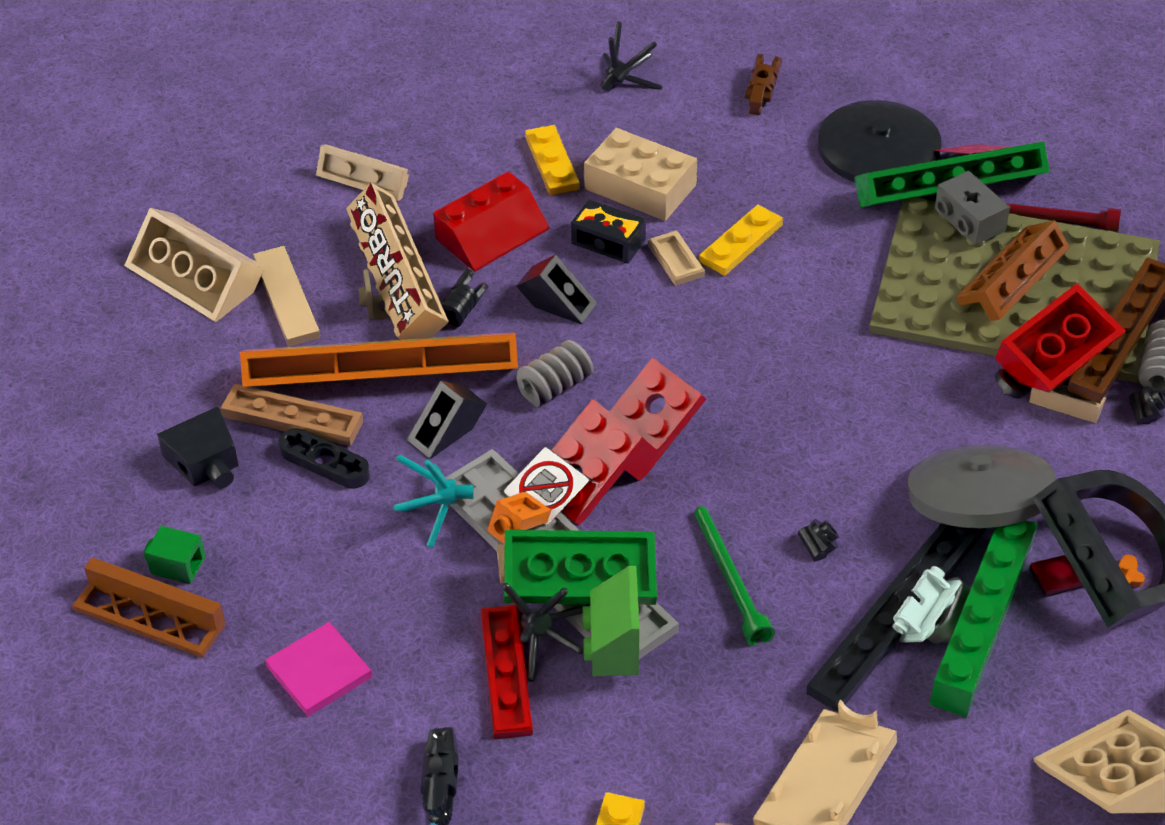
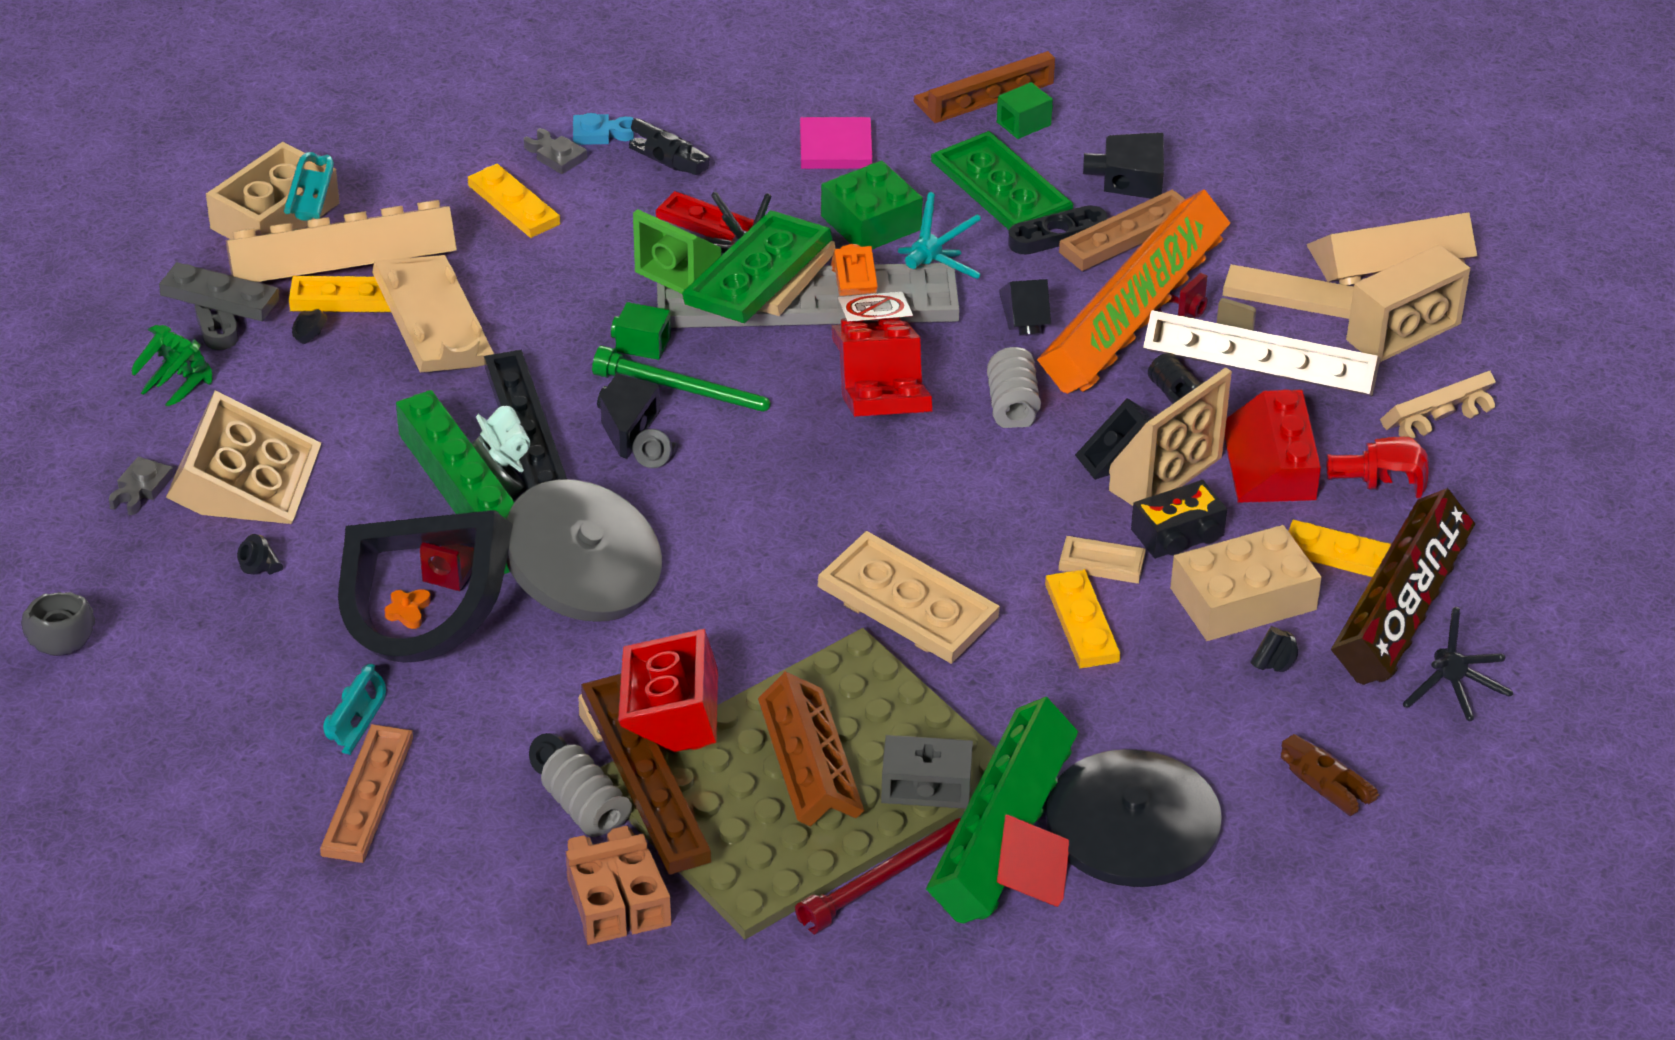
camera: 125 degrees right, 5 degrees down
(277, 210) = (1408, 303): none -> tan brick
(283, 530) = (1000, 180): none -> green tile
(363, 326) = (1192, 298): none -> dark red bracket
(407, 572) = (871, 206): none -> green brick
(457, 162) = (1381, 457): none -> red piece
(558, 224) = (1174, 443): none -> tan slope
(574, 106) = (1403, 588): none -> dark brown brick
(682, 141) = (1276, 651): none -> black plate
(704, 624) = (642, 330): none -> green brick
(805, 570) = (627, 410): none -> black slope
(822, 316) = (908, 597): none -> tan piece

